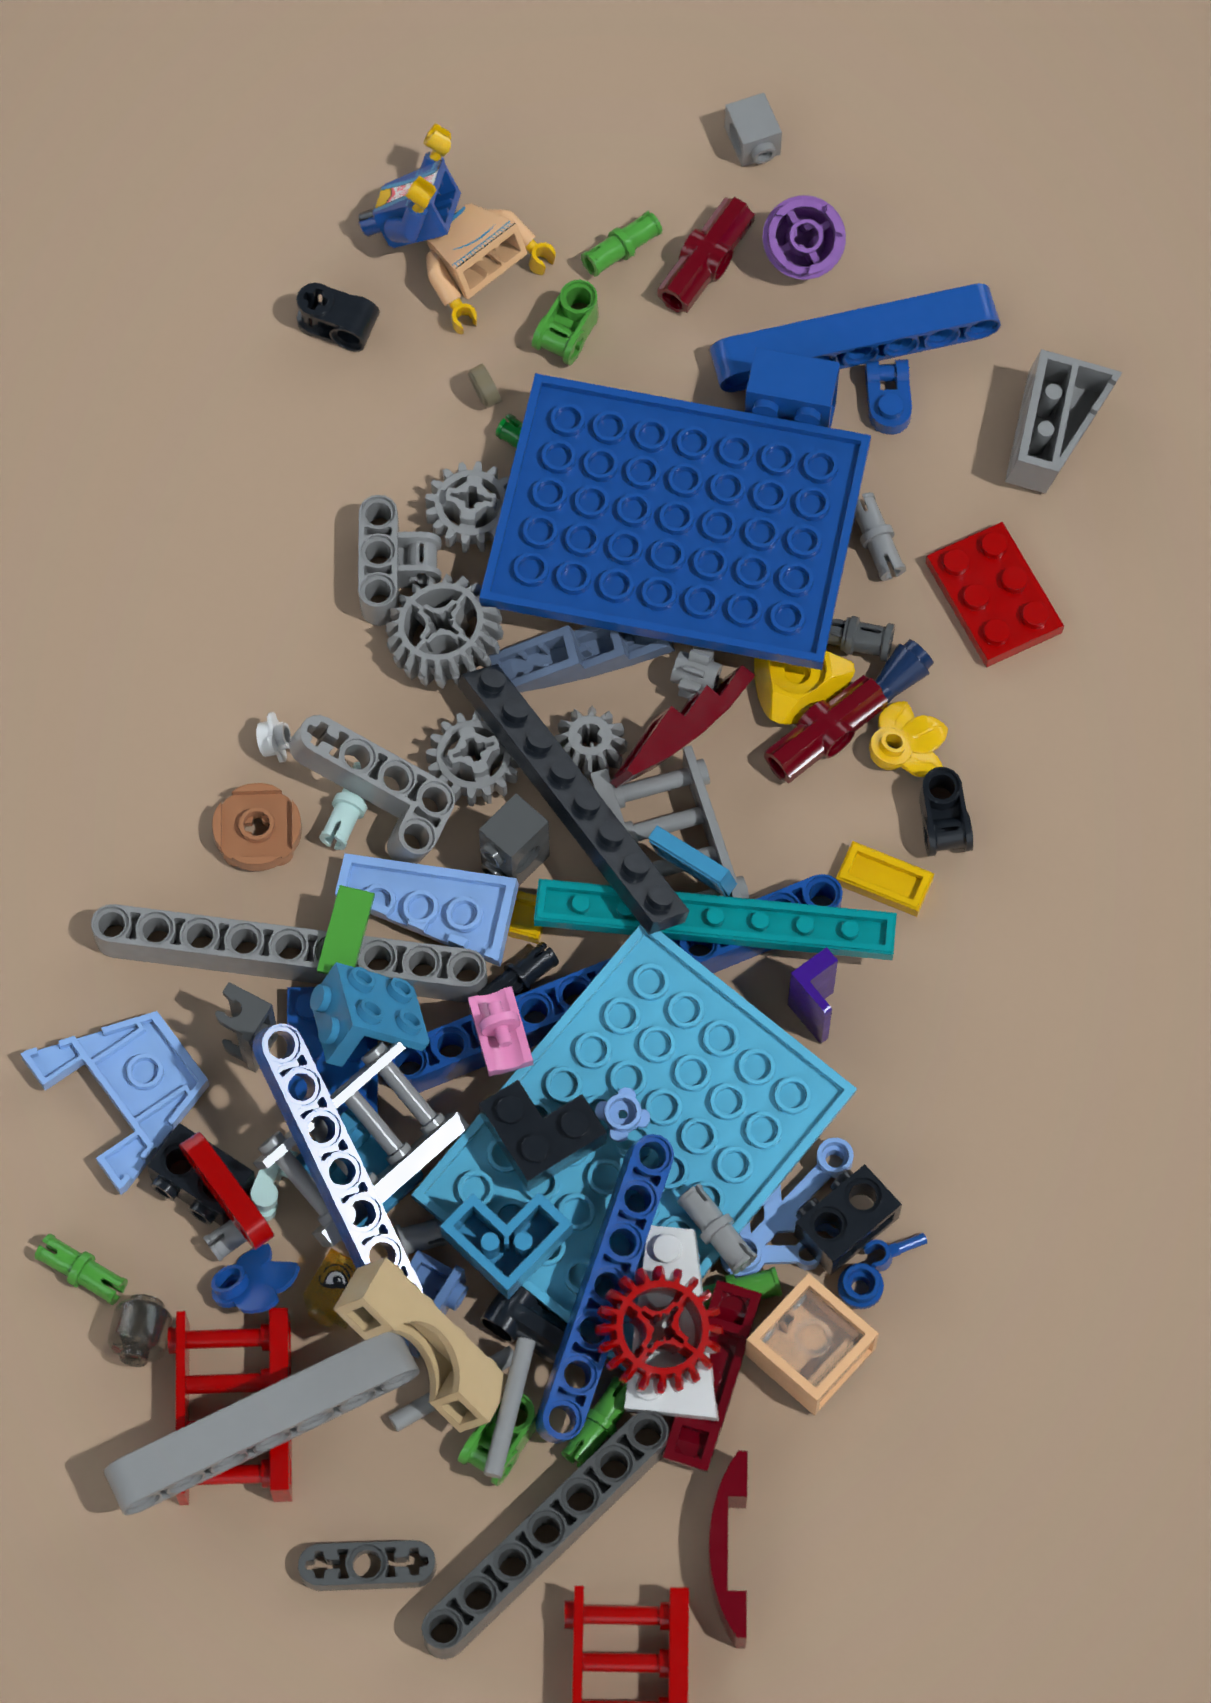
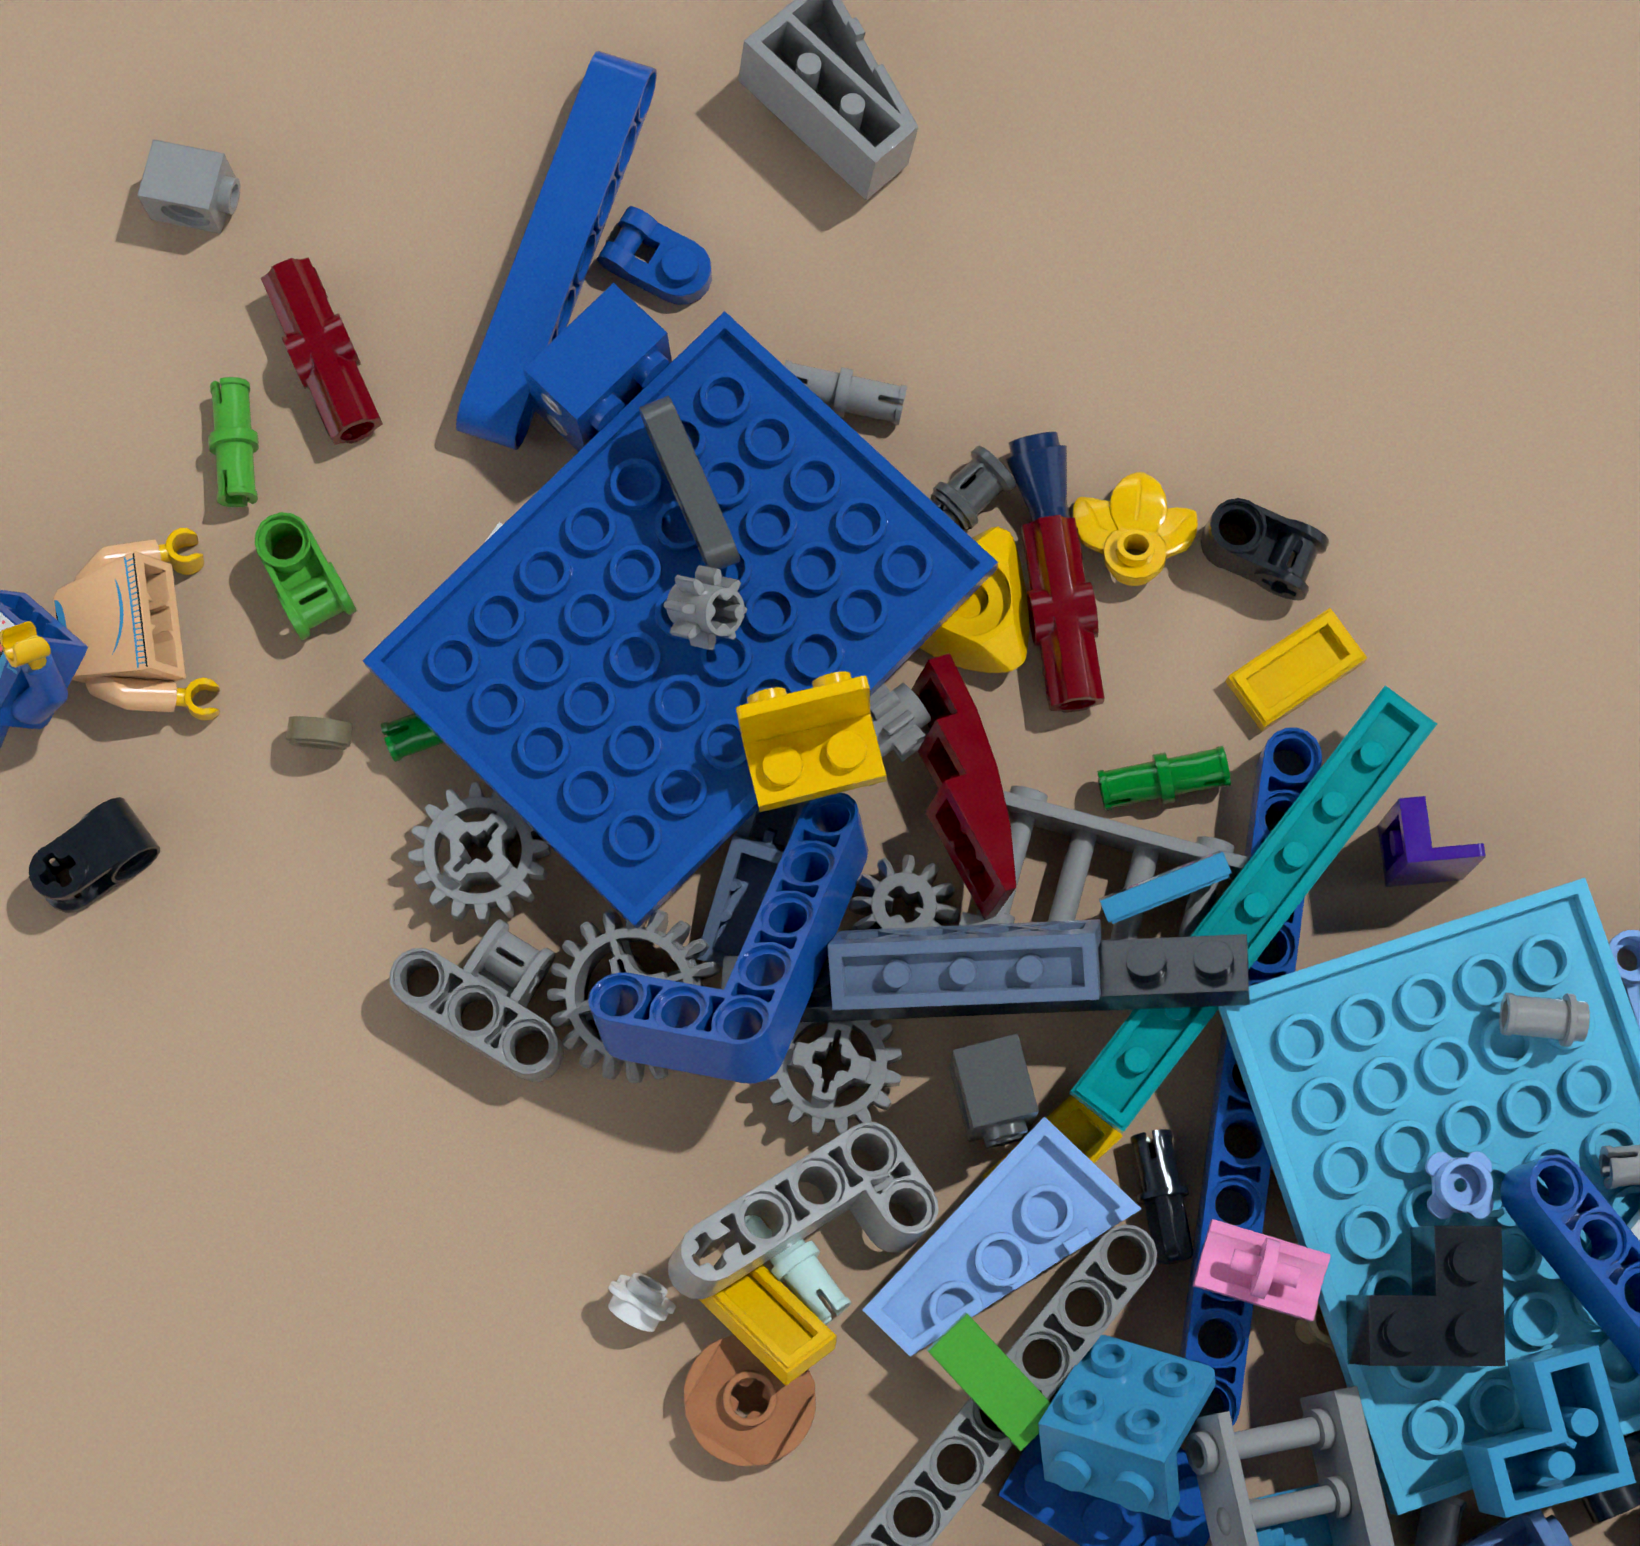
camera: 55 degrees left, 10 degrees up
(306, 807) = (772, 1324): none -> yellow tile
(503, 678) = (751, 1023): none -> blue beam
(569, 774) = (965, 965): none -> sand blue fence
(643, 616) = (810, 740): none -> yellow bracket
(674, 512) = (705, 607): none -> light grey gear
(750, 471) = (689, 483): none -> dark grey beam
(753, 1105) = (1545, 1017): none -> light grey pin
(765, 840) = (1164, 778): none -> green pin
(804, 237) = (389, 218): medium lavender cone -> none
(994, 594) = (1003, 306): red plate -> none

